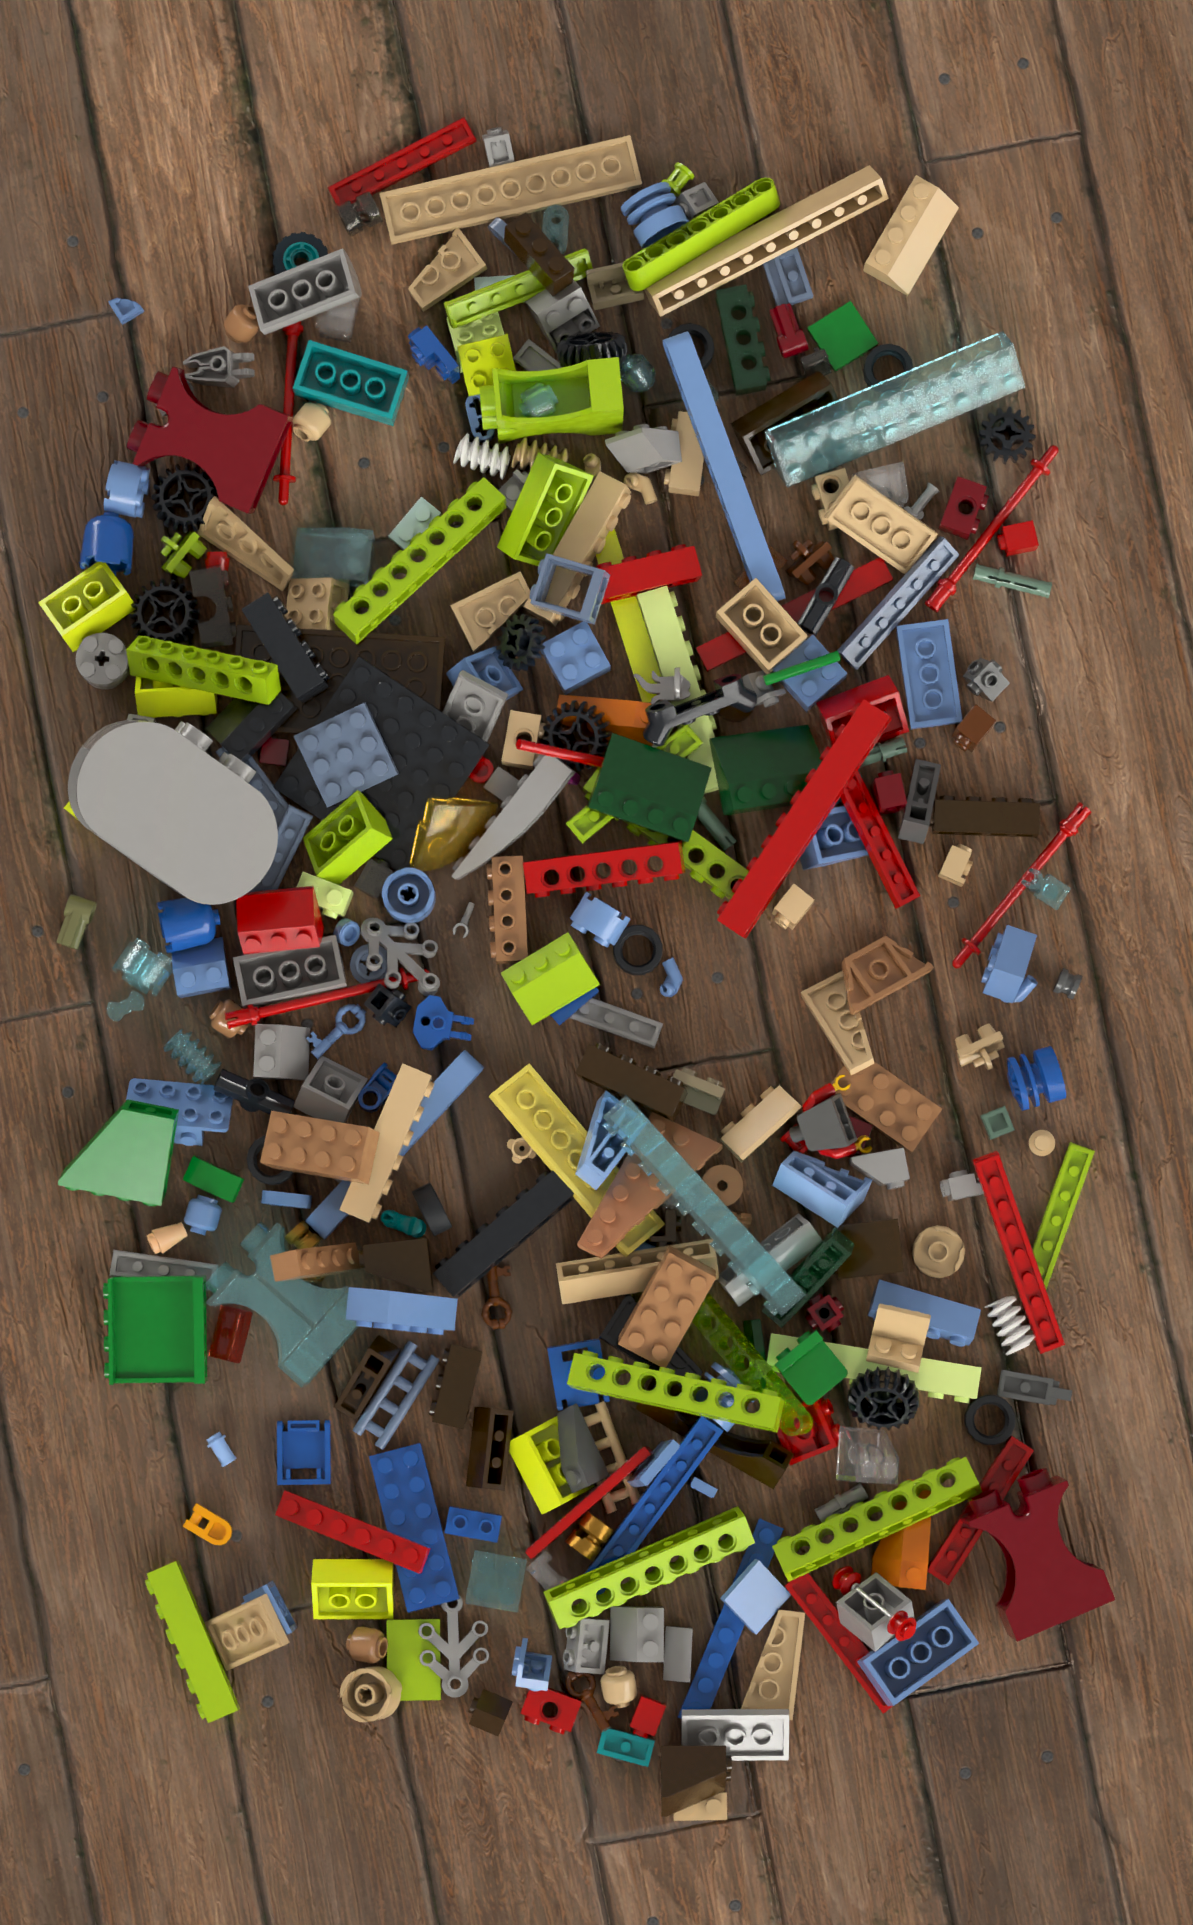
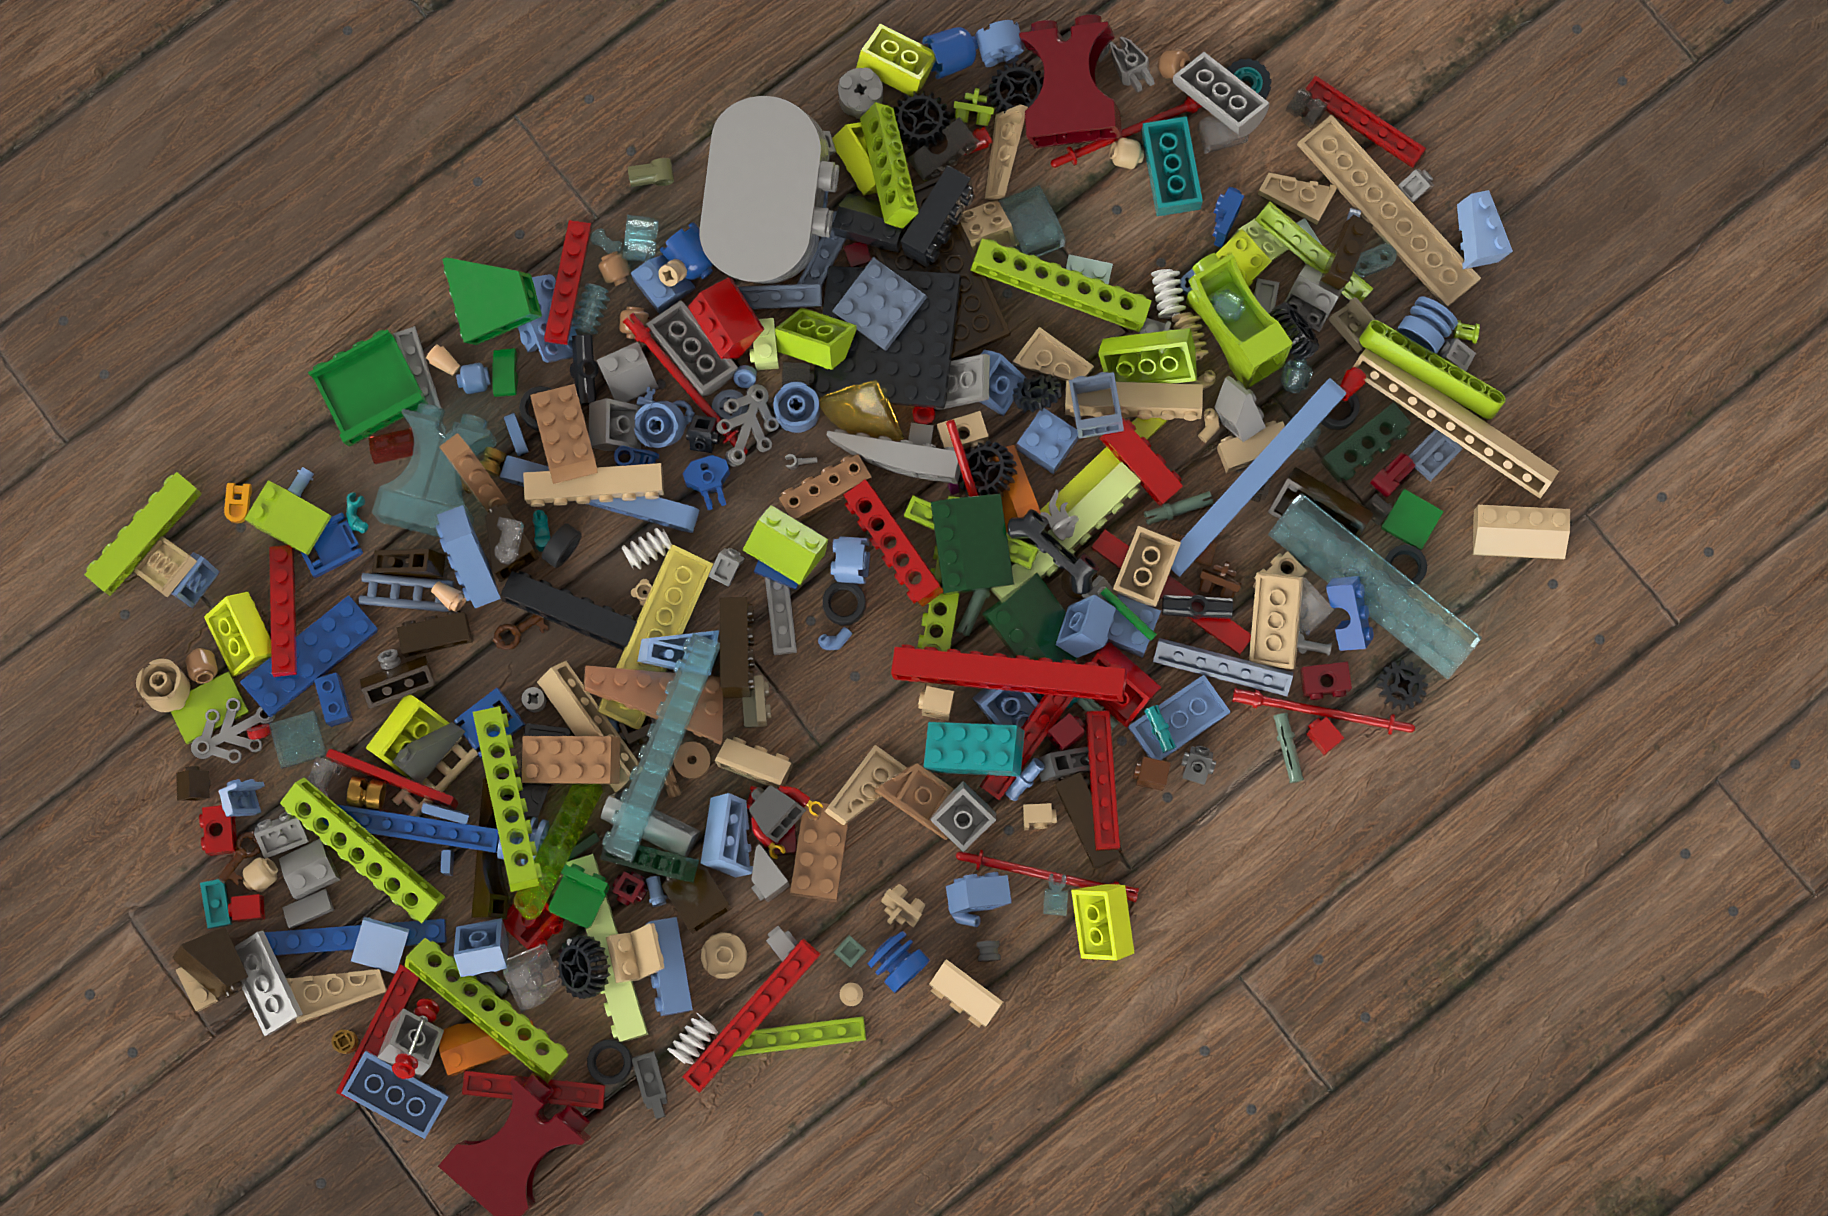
camera: 65 degrees right, 5 degrees down
(151, 1065) = (567, 282): none -> red plate
(160, 1010) = (614, 268): none -> medium nougat head
(201, 944) = (672, 272): none -> tan wheel
(256, 1479) = (287, 517): none -> lime slope
(288, 1413) = (354, 521): none -> teal piece
(369, 1049) = (647, 424): none -> medium blue brick
(415, 1264) = (510, 540): none -> clear leg
(426, 1351) = (449, 596): none -> light nougat cone
(459, 1446) = (389, 659): none -> light grey bush
(468, 1617) = (259, 731): none -> red tile
(478, 1122) = (647, 548): none -> white piece
(538, 1050) = (726, 566): none -> light grey bracket
(577, 1316) = (537, 703): none -> light grey wheel
(582, 107) = (1482, 231): none -> light blue wedge
(674, 319) = (1352, 382): none -> red cone
(711, 563) = (1168, 510): none -> sand green pin
(791, 717) = (1086, 626): none -> medium blue brick
(813, 1492) = (481, 947): none -> medium blue brick
(835, 1679) = (350, 1042): none -> pearl gold wheel
(839, 1288) = (656, 892): none -> light blue pin
(859, 893) = (974, 749): none -> teal brick
(894, 439) = (1349, 595): none -> arch
(913, 858) = (1025, 780): none -> medium blue pin
(921, 938) = (963, 816): none -> light grey slope
(931, 697) = (1160, 728): none -> teal pin
(955, 781) = (1102, 780): none -> red tile
(1097, 854) = (1103, 922): none -> neon yellow slope
(1101, 1028) = (965, 994): none -> tan slope

